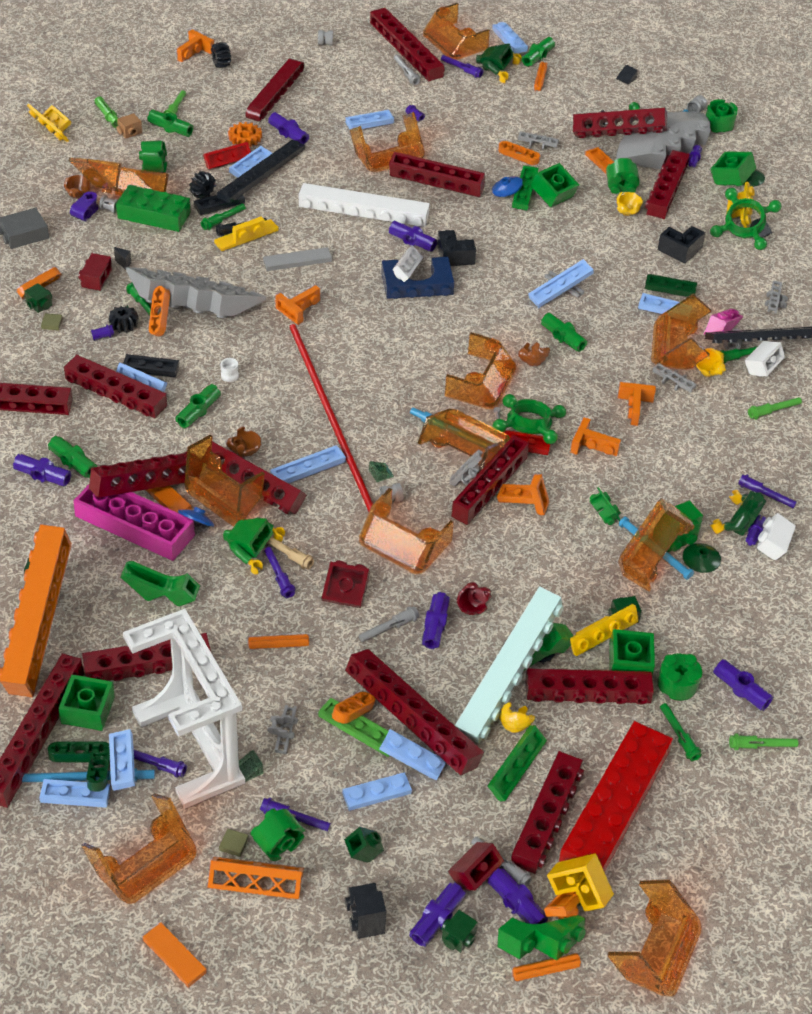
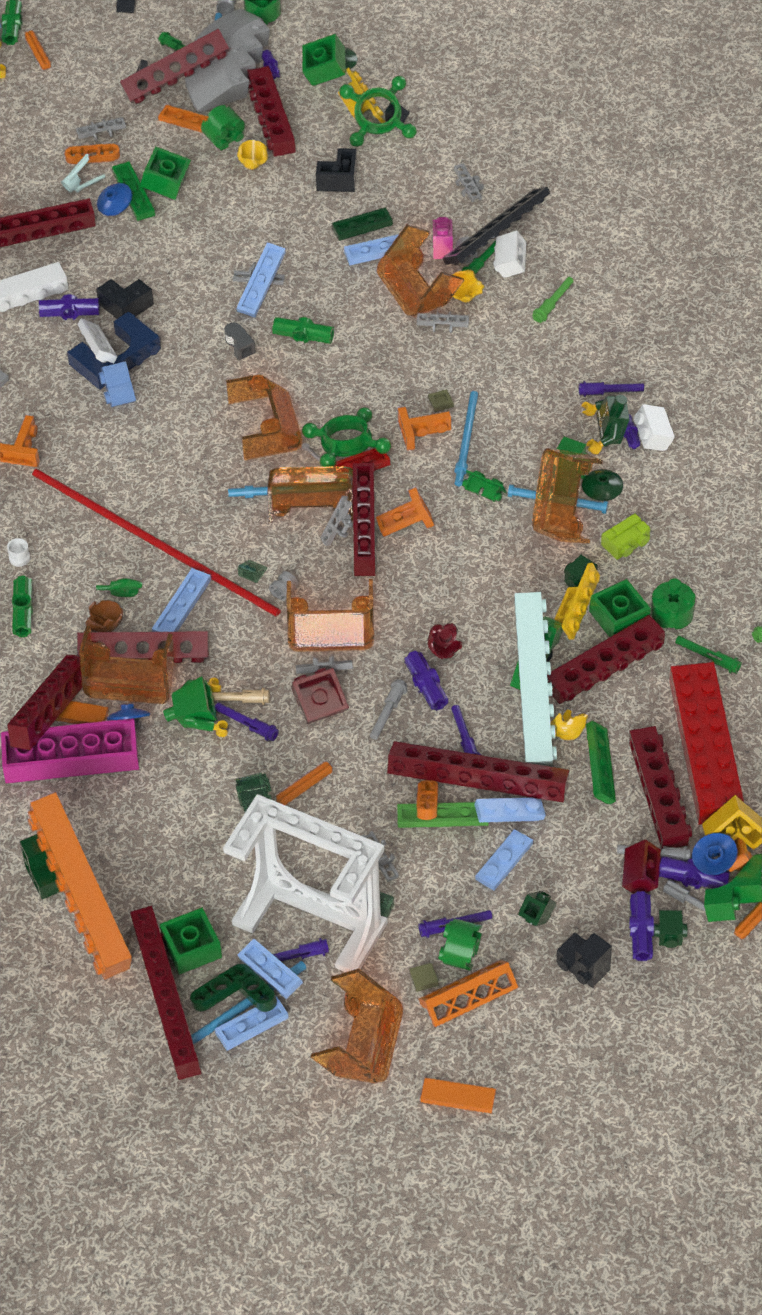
camera: 30 degrees left, 5 degrees up
(121, 663) = (192, 875): dark red brick -> none
(153, 584) = (149, 800): green arch -> none
(228, 626) = (251, 785): none -> clear green brick
(277, 431) = (122, 587): none -> green hand
(375, 567) = (316, 665): none -> light grey piece
(397, 298) = (117, 384): none -> medium blue brick
(427, 684) = (467, 743): none -> dark purple pin
(488, 160) = (72, 181): none -> light aqua plant
(493, 907) = (681, 894): none -> light grey axle
(510, 316) = (240, 340): none -> dark grey leg
(535, 356) = (296, 370): dark orange hair -> none
(541, 885) = (711, 846): none -> blue dish
(601, 483) = (461, 466): none -> dark azure bar
(625, 431) = (440, 400): none -> olive tile
(635, 394) = (423, 357): orange bracket -> none
(685, 604) = (626, 537): none -> lime brick
(743, 684) = (728, 580): dark purple piece -> none

